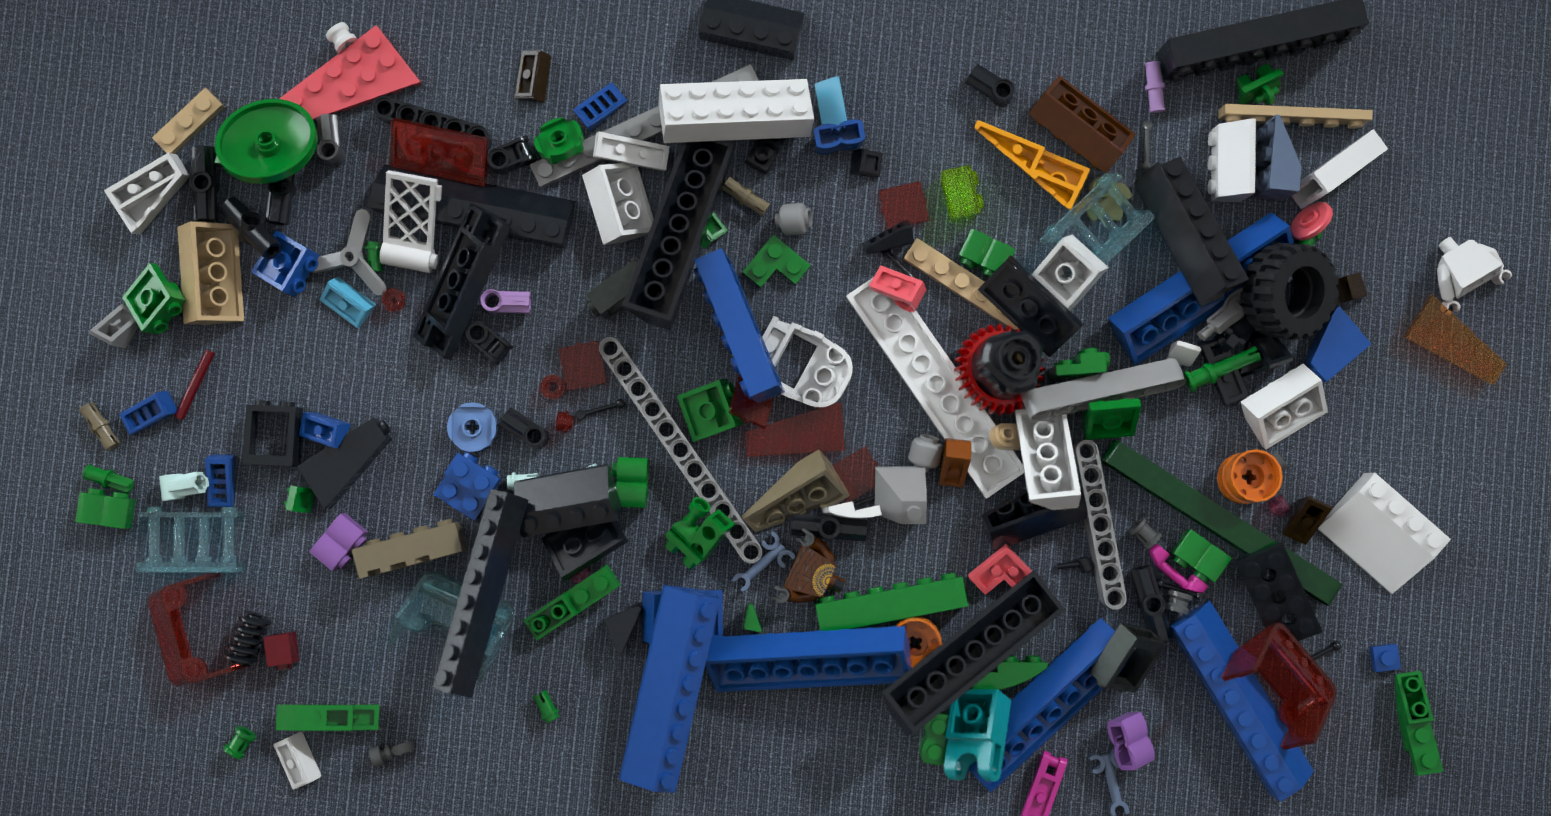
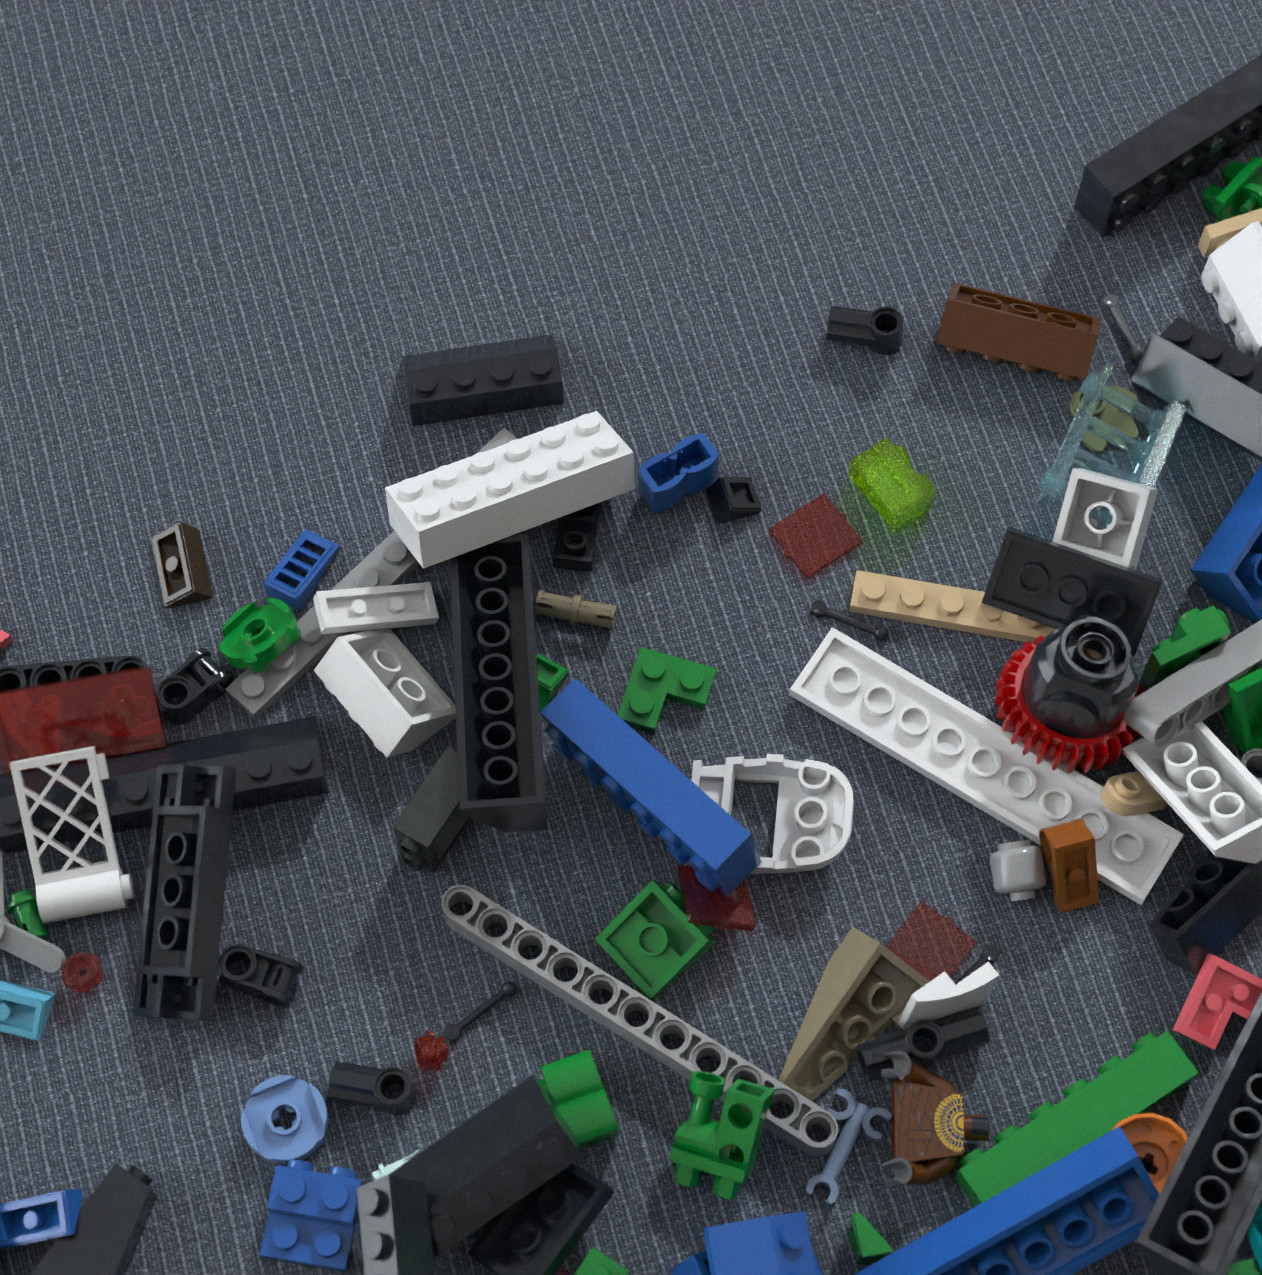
camera: 20 degrees left, 20 degrees down
(508, 302) = (270, 900): lavender piece -> none
(544, 386) = (385, 994): clear red plate -> none
(582, 365) = (424, 956): clear red piece -> none
(793, 219) = (662, 612): light grey head -> none
(799, 434) = (810, 923): clear red wing -> none
(830, 101) = (642, 430): medium azure slope -> none
(896, 236) = (825, 577): black slope -> none
(901, 494) = (1015, 940): light grey slope -> none
(904, 290) = (875, 639): coral plate -> none
(984, 252) = (964, 551): green brick -> none
(1052, 172) = (1017, 407): light orange wedge -> none
(1155, 86) = (1095, 246): lavender pin -> none

